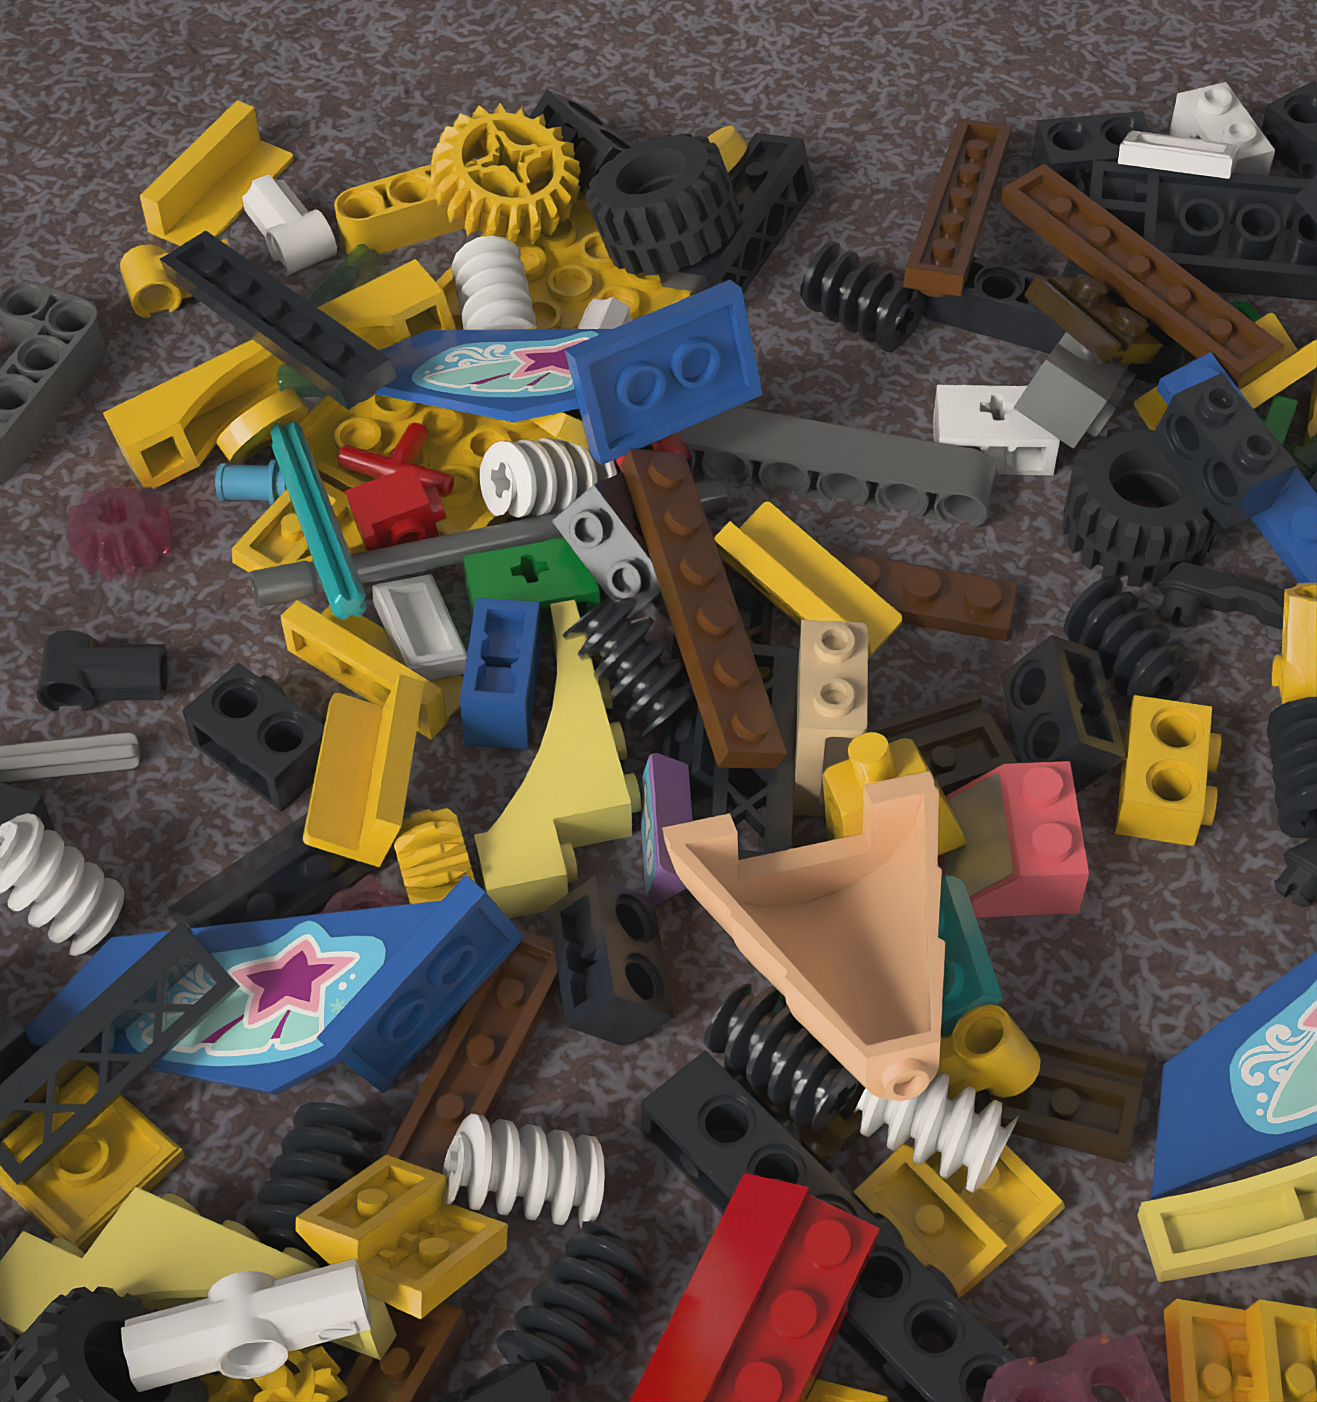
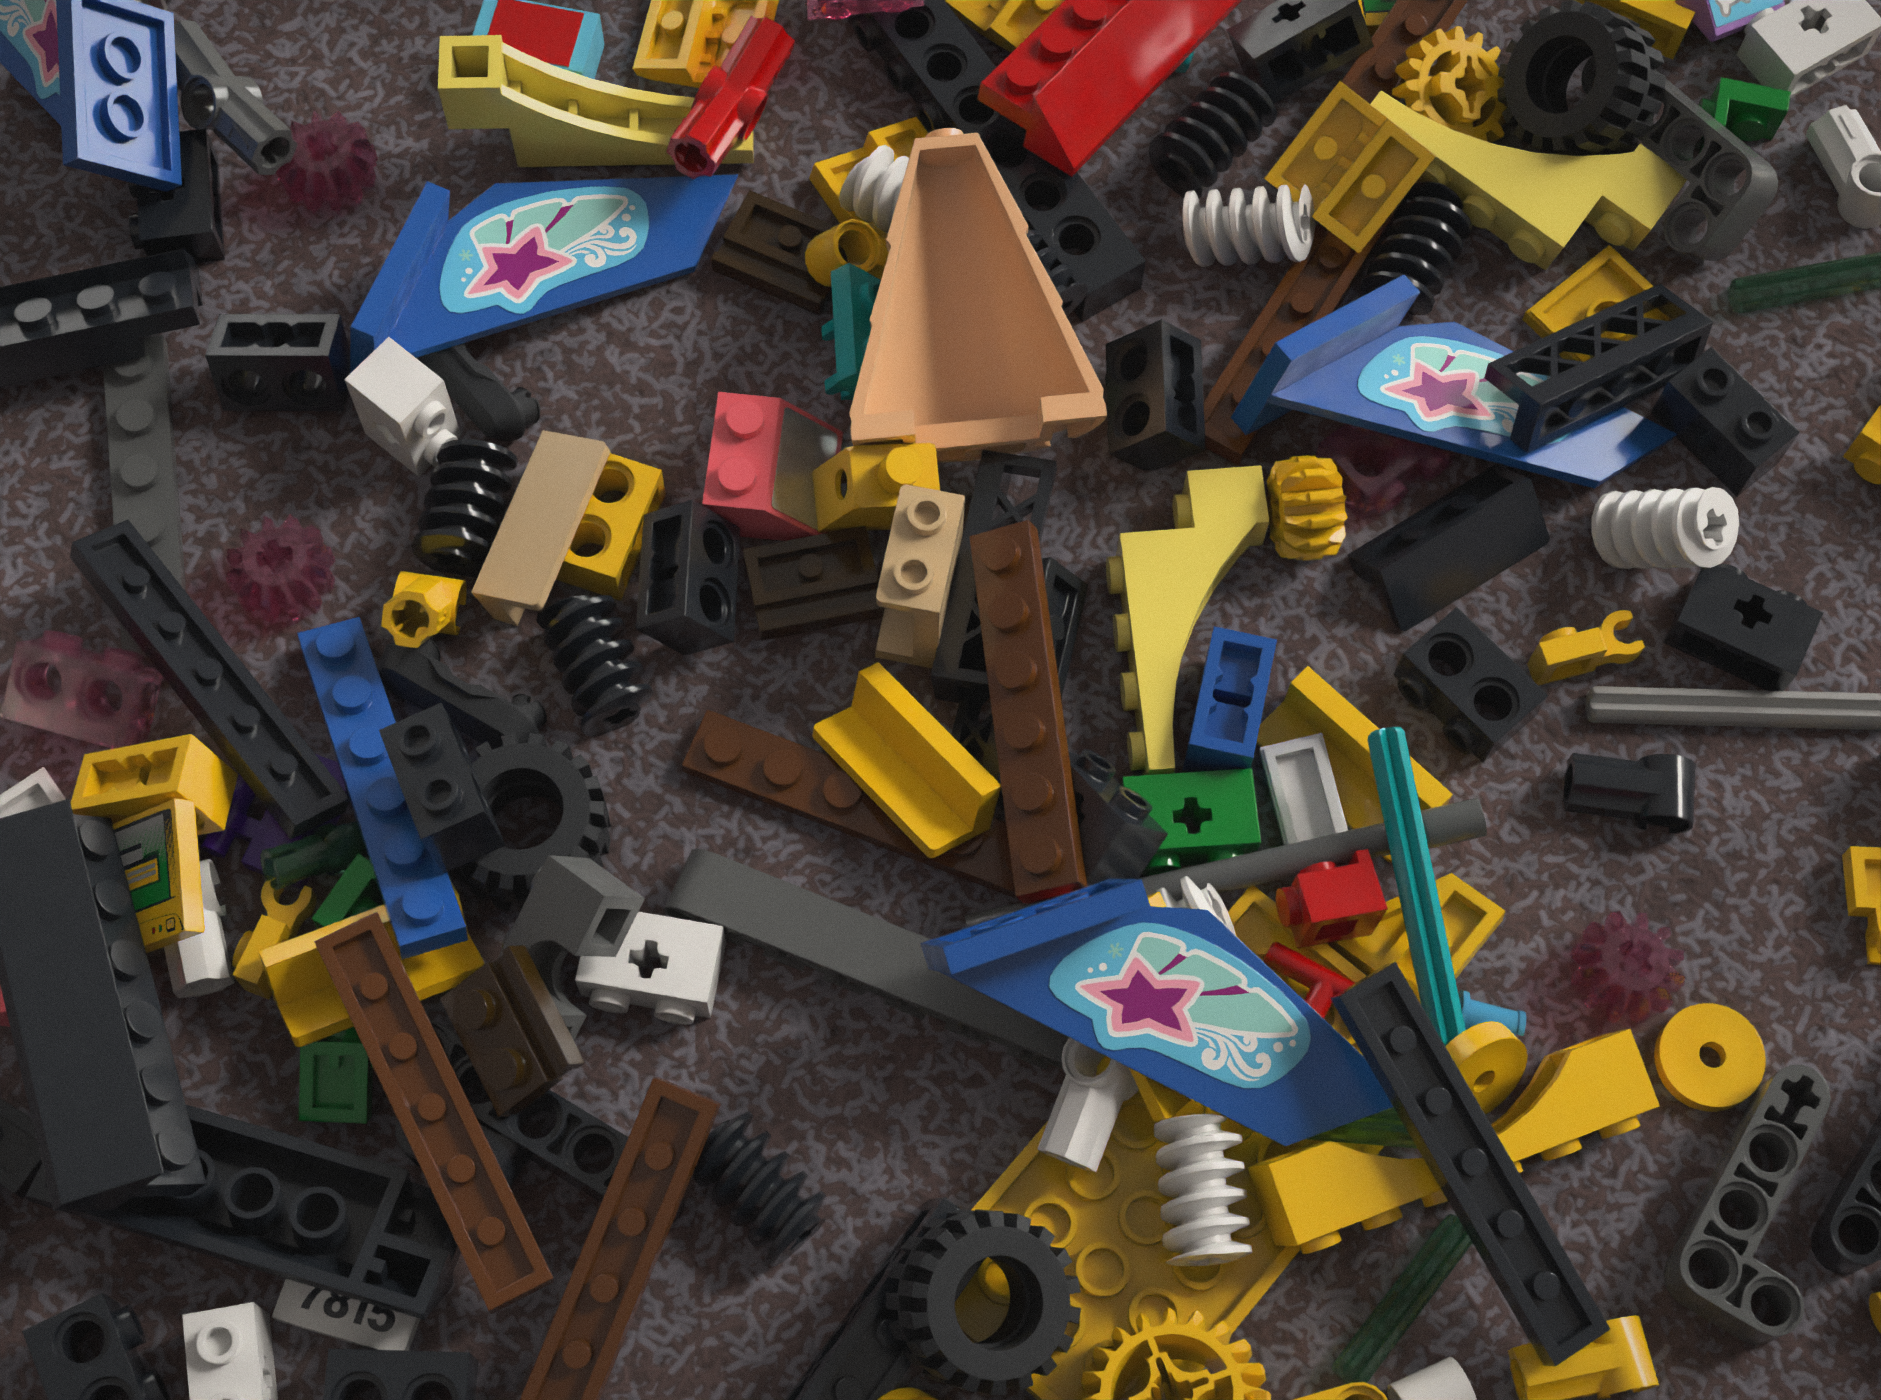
camera: 175 degrees left, 15 degrees up
(40, 468) = (1730, 1036): none -> yellow piece
(146, 779) = (1573, 653): none -> yellow plate
(246, 1325) = (1472, 83): white piece -> none
(364, 773) = (1370, 591): yellow panel -> none
(632, 661) = (1106, 669): black piece -> none
(664, 803) = (1086, 521): medium lavender slope -> none
(1179, 154) = (314, 1300): white tile -> none
(1185, 1220) = (731, 98): none -> red piece
(1227, 746) = (539, 525): none -> tan panel

